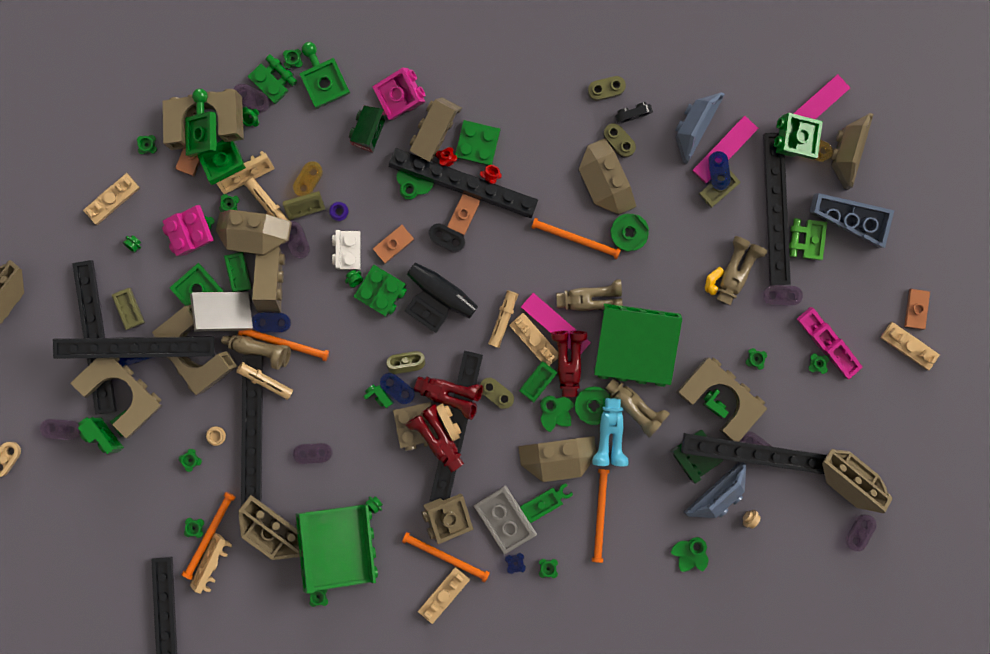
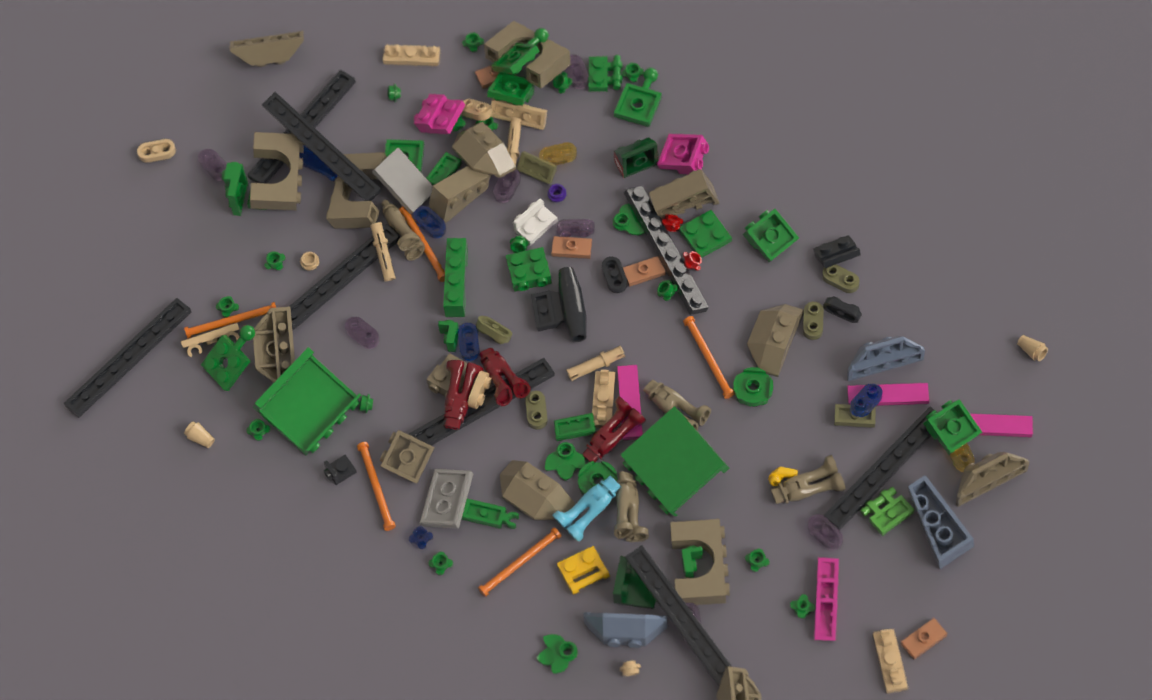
camera: 50 degrees right, 25 degrees down
(128, 308) = (344, 129): olive plate -> none
(208, 202) = (476, 110): none -> tan plate
(249, 565) = (236, 358): none -> green plate
(281, 642) = (198, 434): none -> tan cone
(337, 349) = (454, 285): none -> green arch
(387, 222) = (575, 227): none -> clear purple plate
(407, 570) = (339, 469): none -> black bracket
(443, 595) = (345, 511): tan plate -> none
(491, 216) = (666, 289): none -> green plate
(526, 101) = (770, 234): none -> green plate
(586, 70) = (836, 251): none -> black plate
(642, 478) = (580, 565): none -> yellow plate
(790, 19) = (1034, 348): none -> tan cone

